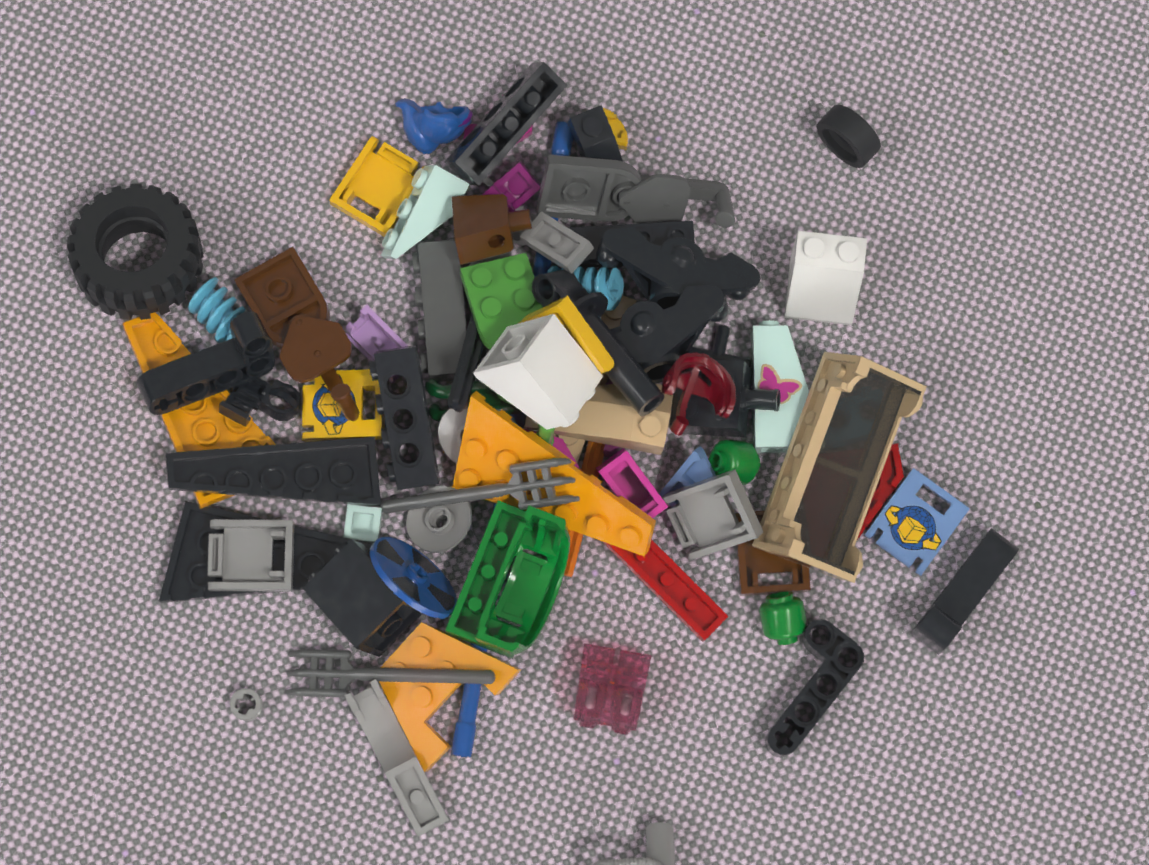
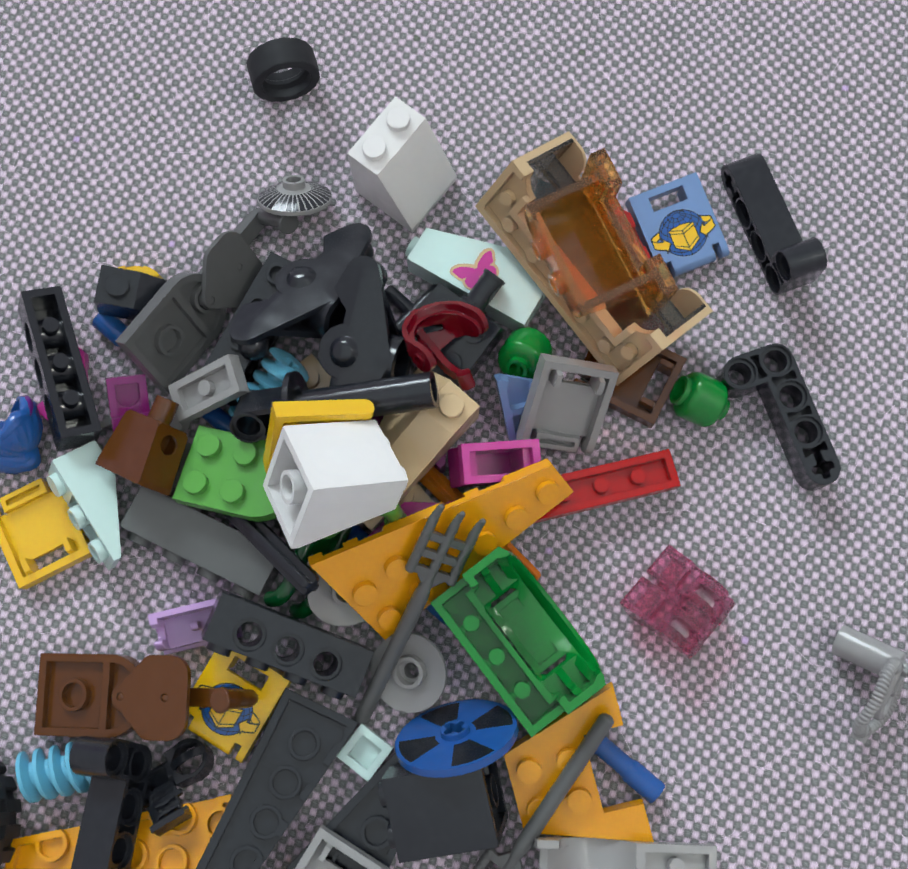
camera: 55 degrees left, 0 degrees up
(750, 210) = (294, 197): none -> dish
(838, 457) = (593, 246): none -> clear orange windscreen

